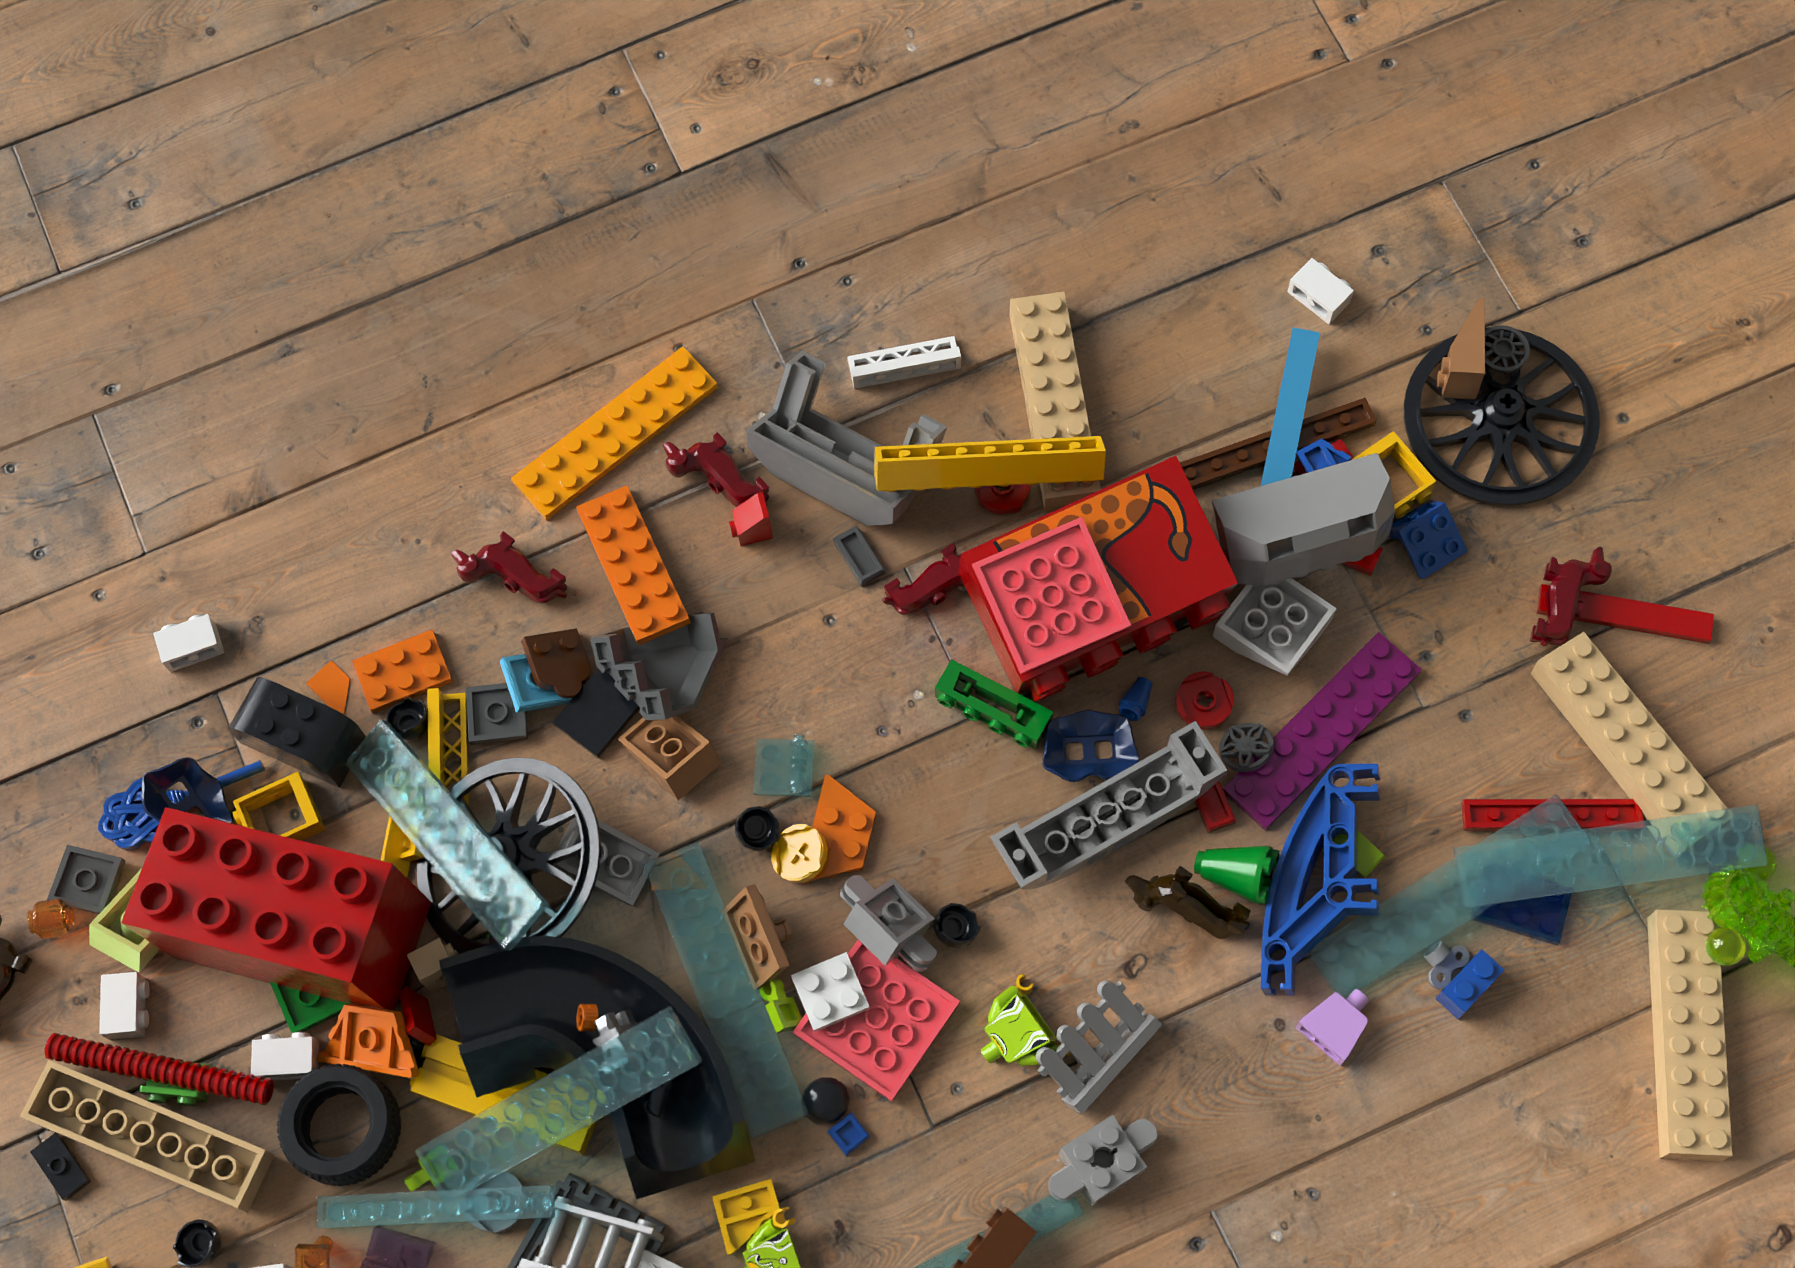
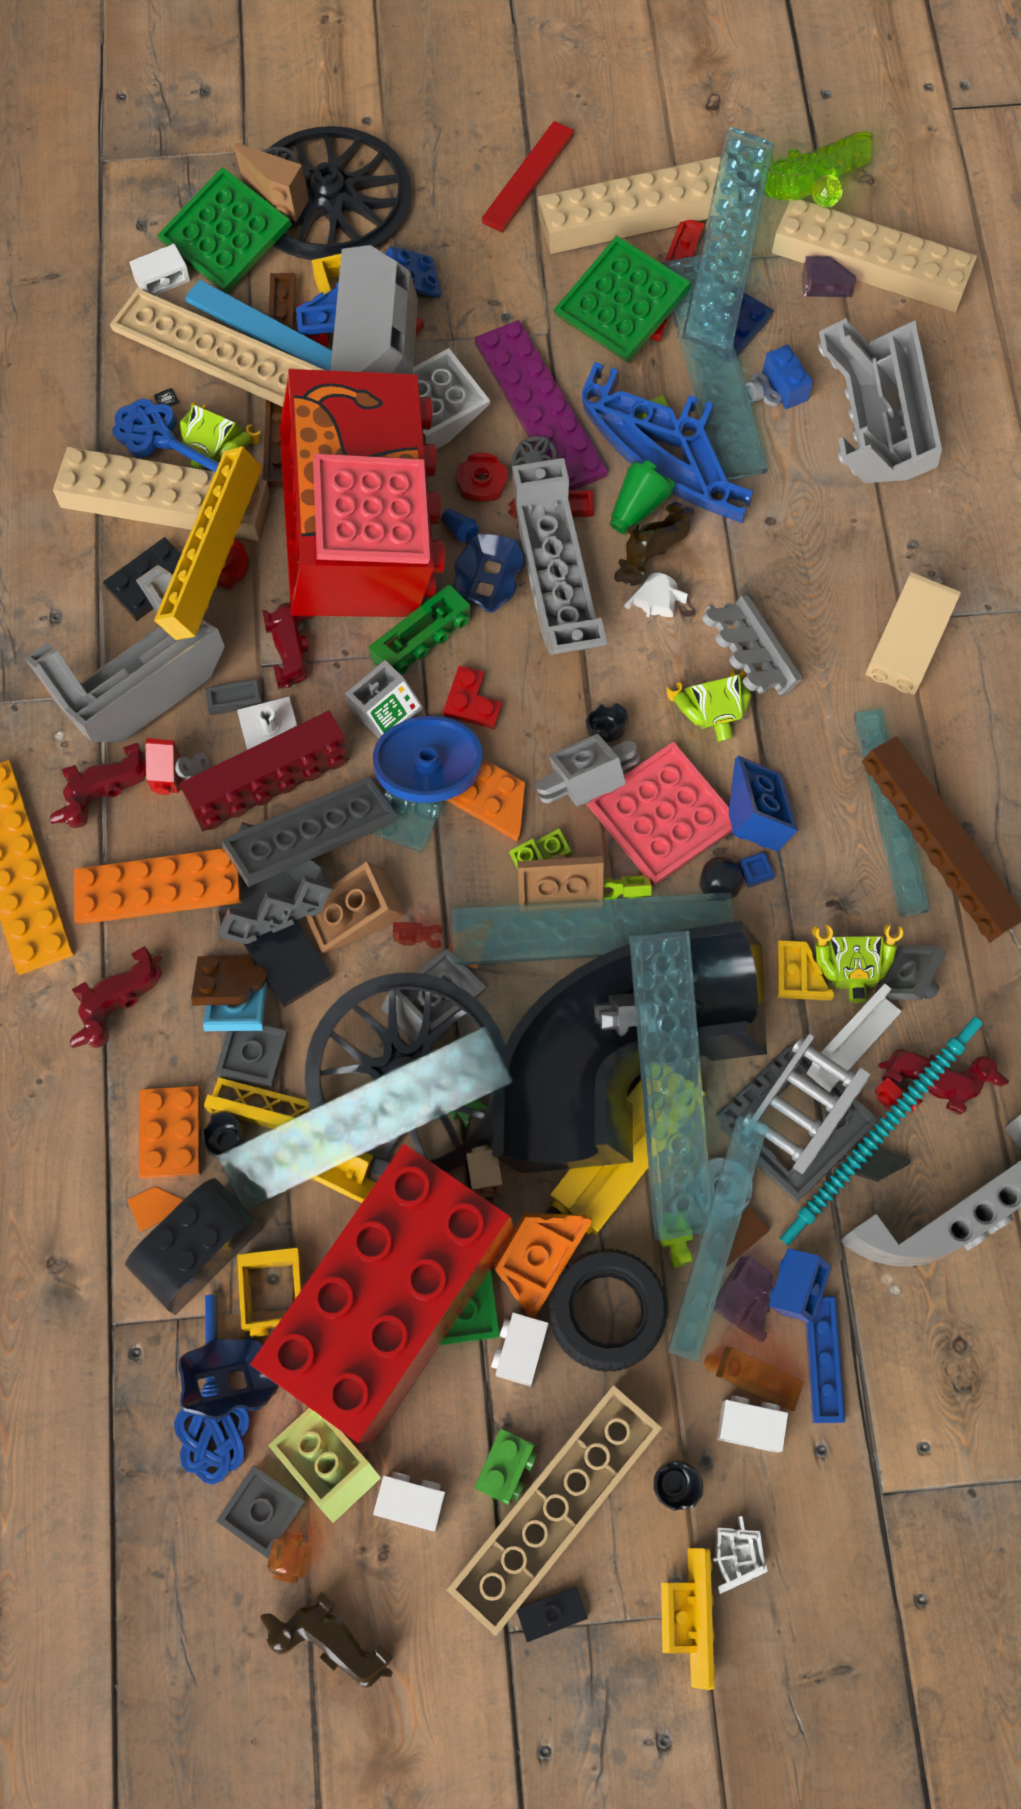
camera: 75 degrees left, 0 degrees up
(159, 1068) = (491, 1479): red piece -> none
(188, 642) = (47, 1336): white brick -> none
(417, 1016) = (530, 1204): red tile -> none
(454, 1236) = (748, 1233): none -> reddish brown tile
(586, 1016) = (592, 1039): orange axle -> none
(660, 813) = (412, 933): none -> clear red plate
(728, 678) = (308, 831): none -> dark grey plate
(757, 828) = (458, 855): black hair -> none
(761, 549) = (192, 766): none -> light grey piece
(778, 615) = (265, 771): none -> dark red brick
(788, 904) = (543, 848): none -> lime slope
(799, 853) = (494, 828): yellow tile -> none
(830, 992) = (631, 839): white plate -> none
(836, 602) = (266, 720): none -> white tile
(848, 762) = (428, 759): none -> blue dish
(898, 697) = (382, 699): none -> slope
(904, 366) = (70, 604): white fence -> none
(916, 1112) = (760, 805): none -> blue slope
(934, 776) = (466, 704): none -> red plate
(964, 420) = (124, 584): none -> black plate
(1102, 1160) = (845, 677): light grey brick -> none
(1132, 930) = (657, 595): none -> white piece
(1133, 363) = (142, 436): none -> blue piece
(1139, 418) = (213, 434): none -> lime torso
(1175, 359) = (166, 397): none -> black sticker
(1180, 1219) = (912, 633): none -> tan slope
(1242, 387) = (207, 345): none -> tan plate
(1336, 1024) = (788, 477): lavender torso -> none
(1397, 332) = (224, 230): none -> green plate
(1466, 1107) = (892, 436): none -> light grey wedge
(1488, 768) = (622, 298): none -> green plate
(1564, 593) = (501, 201): dark red animal -> none
(1630, 987) = (826, 278): none -> clear purple slope

